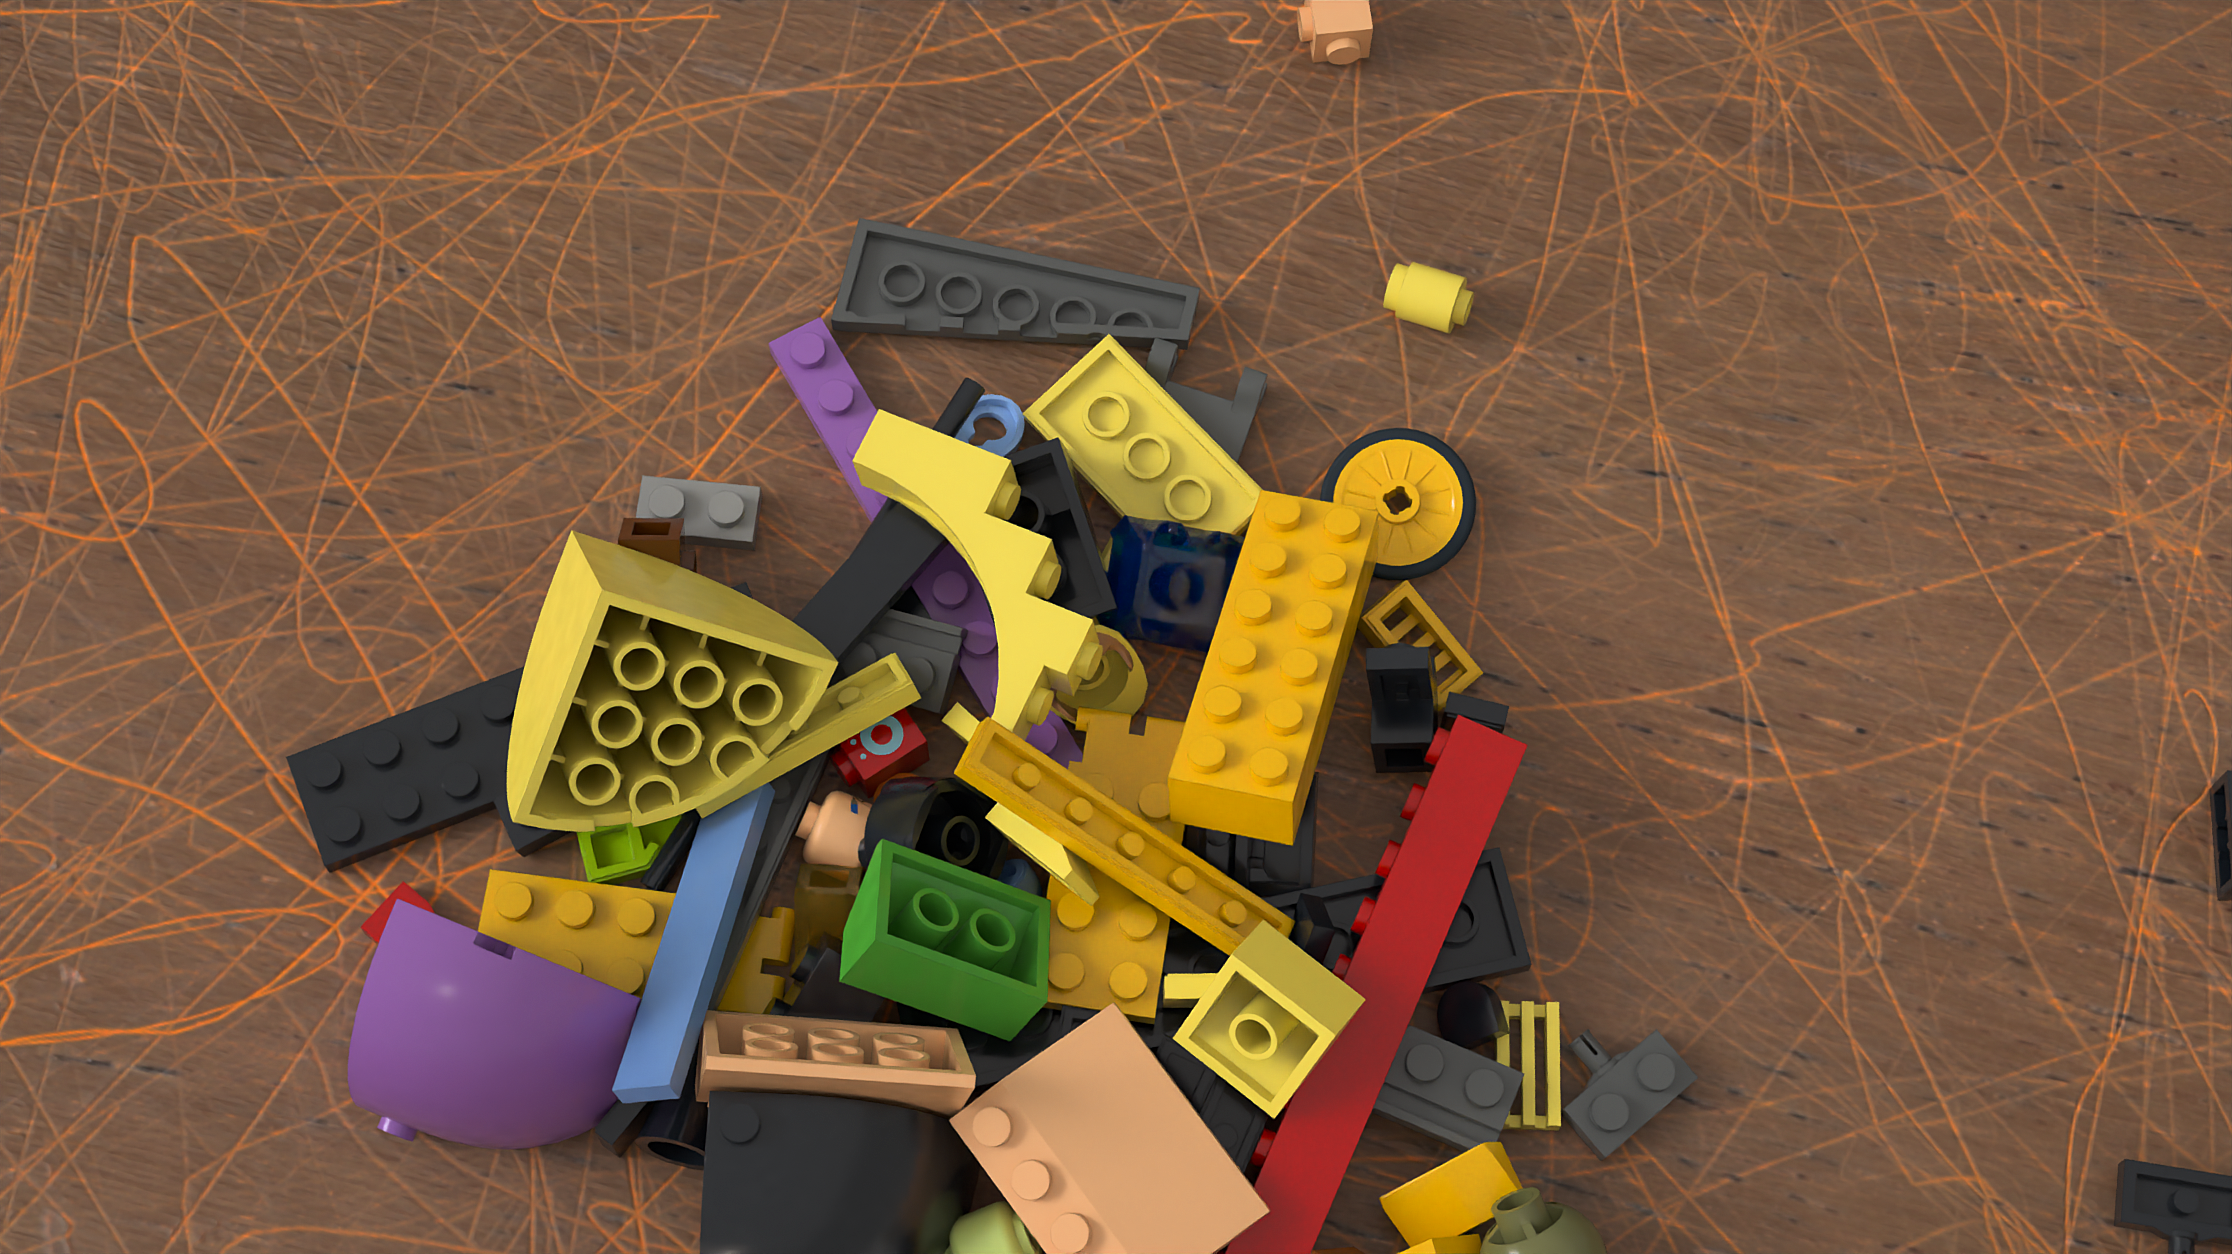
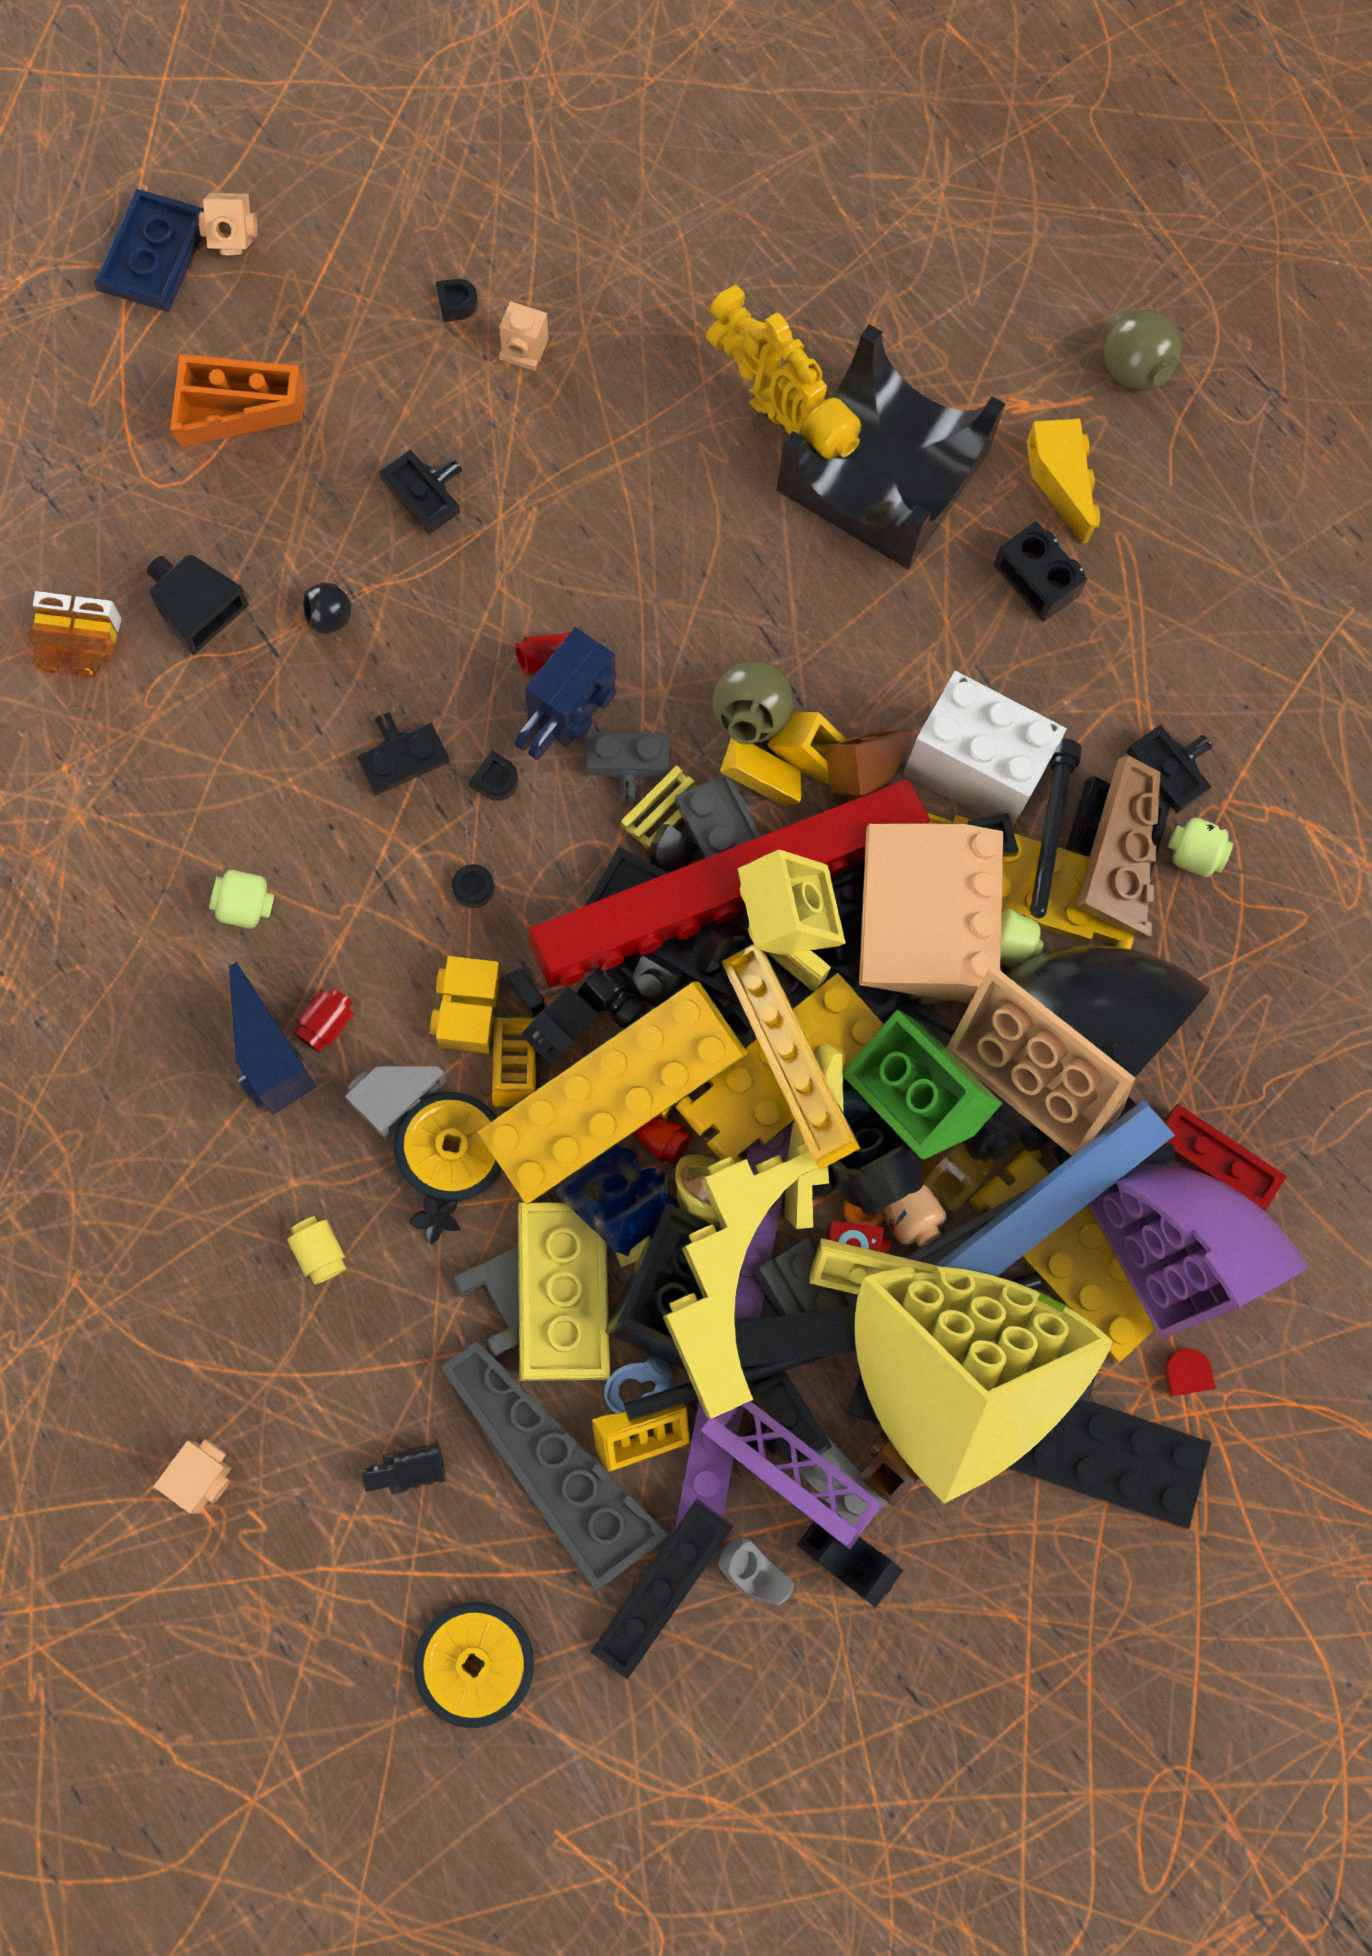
camera: 145 degrees left, 5 degrees up
(542, 1193) = (1221, 1157): none -> red plate
(630, 441) = (859, 1568): none -> black brick
(716, 359) = (754, 1573): none -> light grey hair
(748, 434) = (783, 1484): none -> medium lavender fence
(796, 273) = (662, 1588): none -> black tile
(804, 513) = (785, 1405): none -> black hinge
(923, 110) = (454, 1691): none -> yellow wheel
(942, 373) = (629, 1451): none -> yellow slope
(1143, 180) = (406, 1470): none -> black hinge
(1173, 690) = (664, 1139): none -> red cone
(1345, 423) = (435, 1218): none -> black plant
(1349, 850) = (654, 979): none -> black plate
(1379, 795) = (607, 992): none -> black piece
(1508, 497) = (391, 1091): none -> light grey slope
(1514, 638) = (467, 1004): none -> yellow piece
(1646, 794) = (473, 886): none -> black tile
(1652, 514) = (324, 1019): none -> red brick
(1685, 427) = (268, 1062): none -> dark blue slope
(1745, 937) = (495, 778): none -> black tile
(1758, 1081) = (567, 693): none -> dark blue brick
(1840, 1130) = (536, 650): none -> red cone
(1865, 559) = (241, 899): none -> yellowish green head
(1870, 869) = (401, 755): none -> black plate
(2126, 957) = (326, 608): none -> black piece

